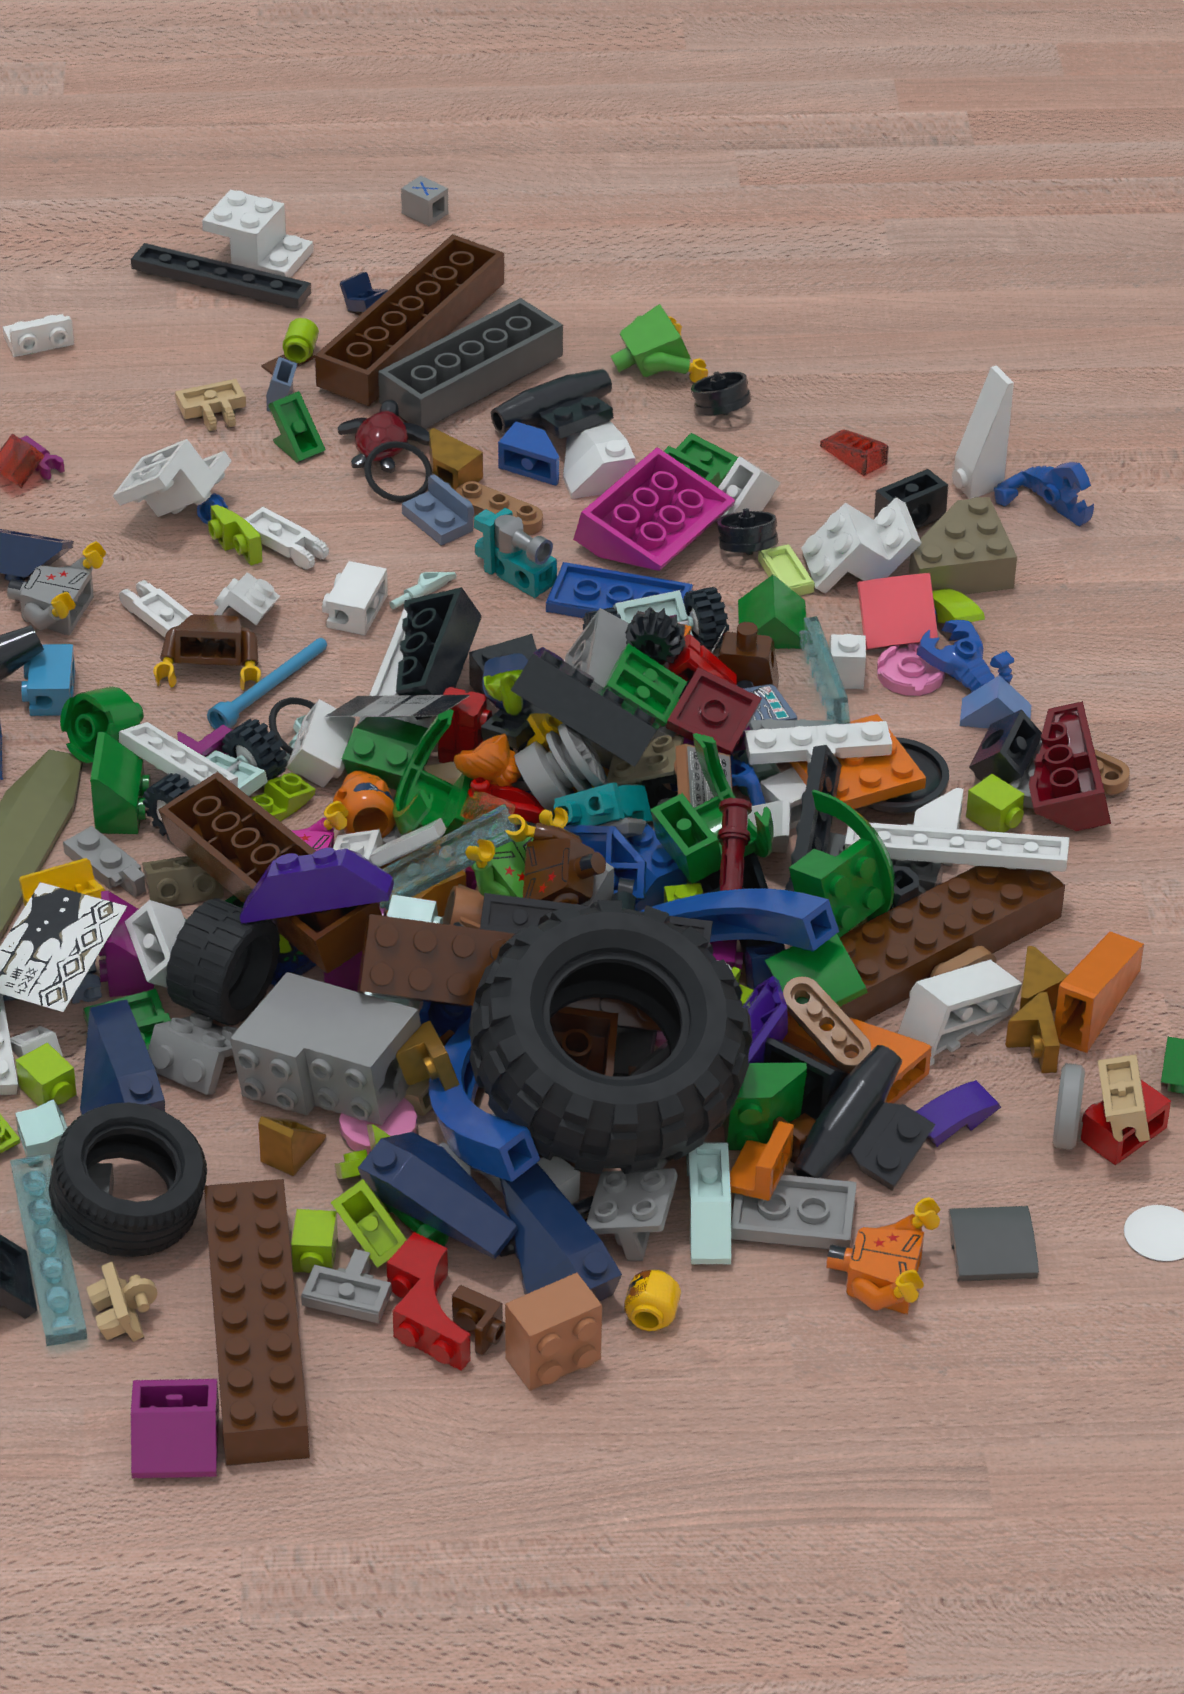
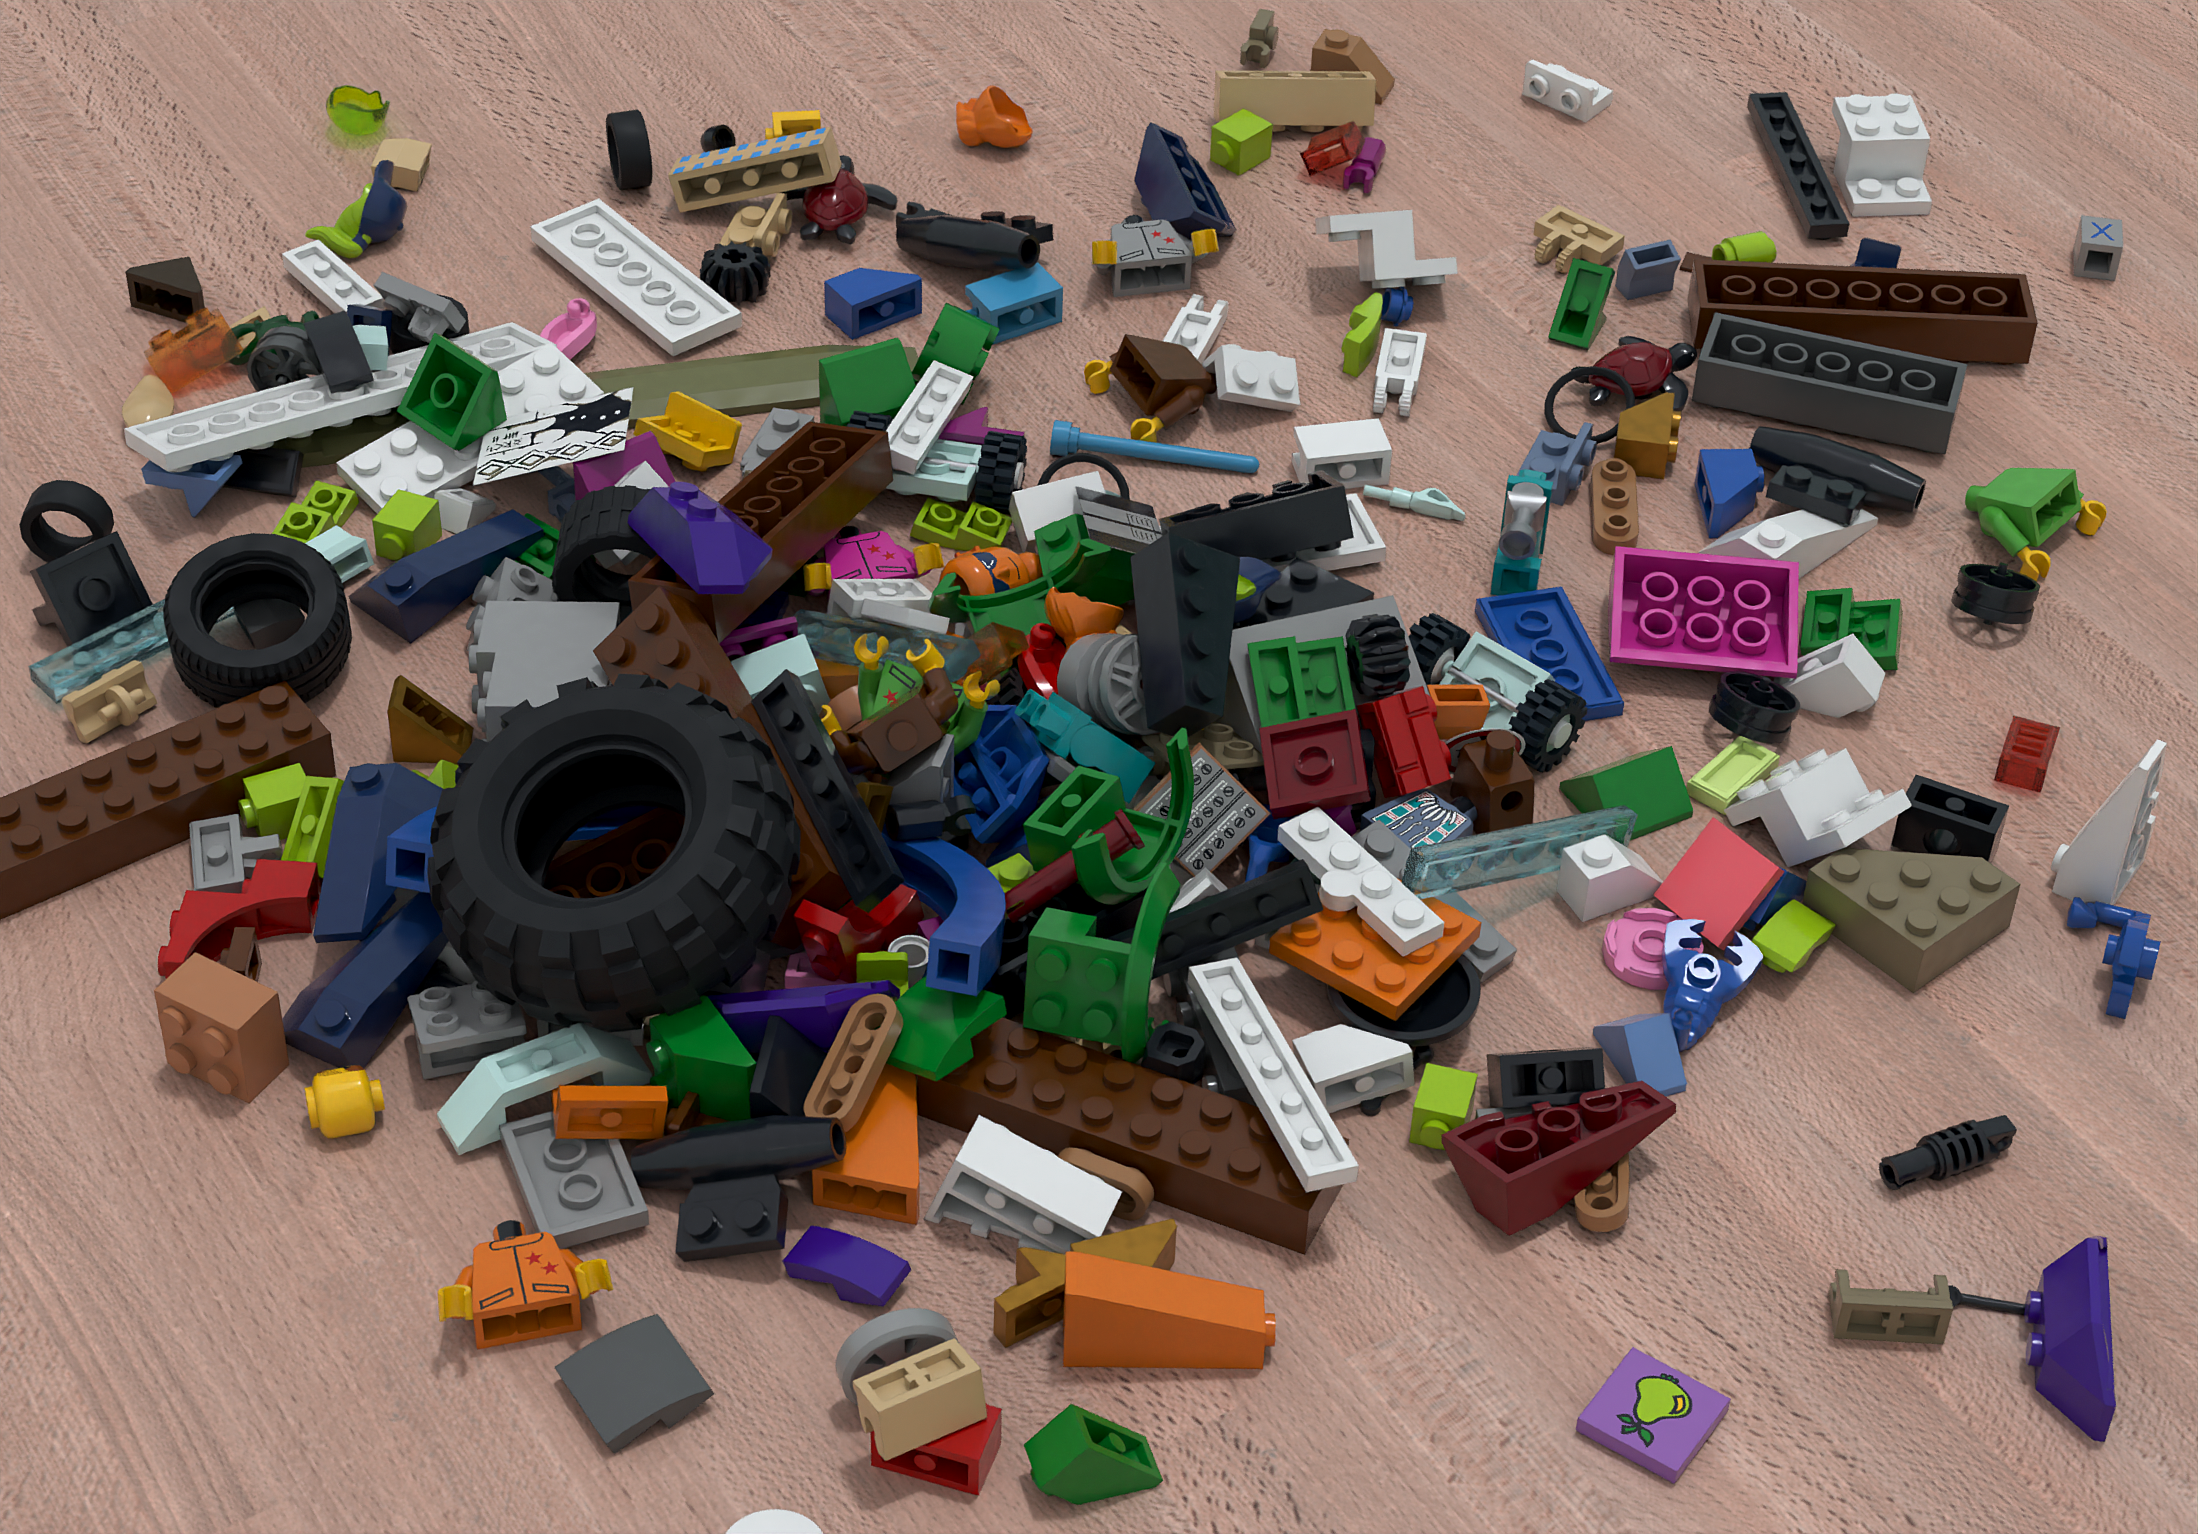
camera: 60 degrees right, 0 degrees up
(1156, 629) = (1949, 1152): none -> black hinge

